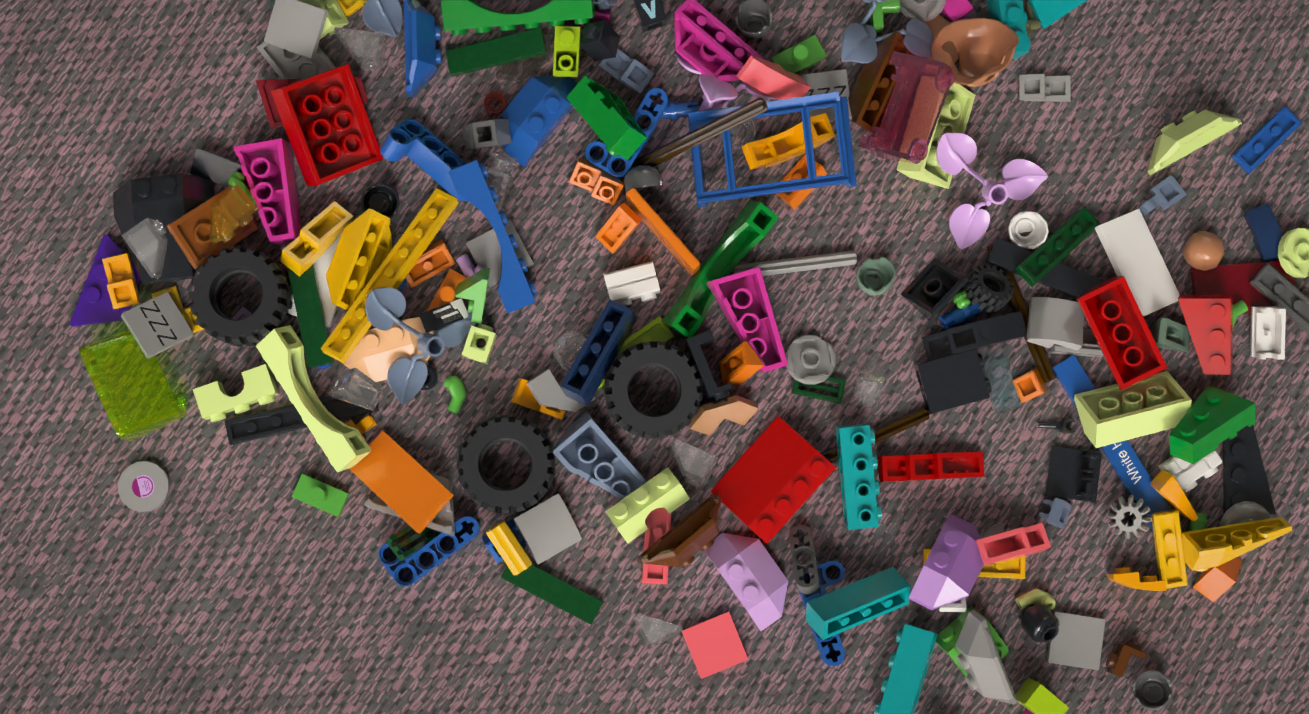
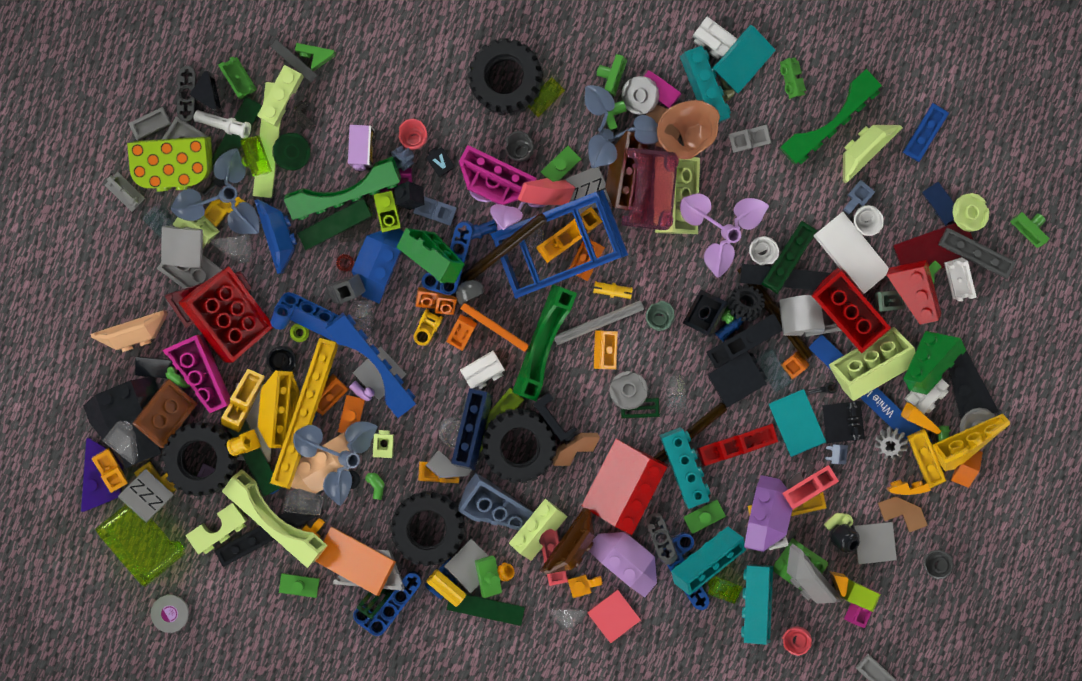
camera: 10 degrees left, 5 degrees up
(203, 117) = (132, 332): none -> light nougat wedge
(229, 212) = (174, 400): clear yellow slope -> none
(303, 291) = (243, 443): none -> yellow piece
(407, 169) = (295, 337): none -> lime plate
(443, 315) = (351, 432): sticker -> none
(475, 290) = (369, 408): slope -> none
(567, 548) = (488, 576): none -> bright green tile
(579, 208) = (427, 326): none -> yellow piece
(590, 549) = (506, 572): none -> light orange plate
(683, 593) = (581, 585): none -> light orange plate
(693, 462) = (563, 489): clear slope -> none
(739, 365) = (577, 410): orange slope -> none
(750, 315) = (573, 368): dark pink wedge -> none
(794, 301) = (605, 349): none -> light orange slope
(823, 229) = (613, 290): none -> yellow pin
(864, 547) = (704, 516): none -> bright green tile
(867, 647) = (724, 589): none -> clear neon green tile
(1014, 459) = (797, 422): none -> teal tile
(1019, 679) = (840, 582): none -> light orange slope
(1108, 110) = (860, 89): none -> green arch
(1116, 16) = (793, 86): none -> bright green hinge
(1118, 660) = (908, 549): reddish brown bracket -> none
(1132, 616) = (911, 513): none -> medium nougat tile
(1174, 222) = (874, 218): none -> white hair
(1203, 250) = (898, 230): nougat hair -> none

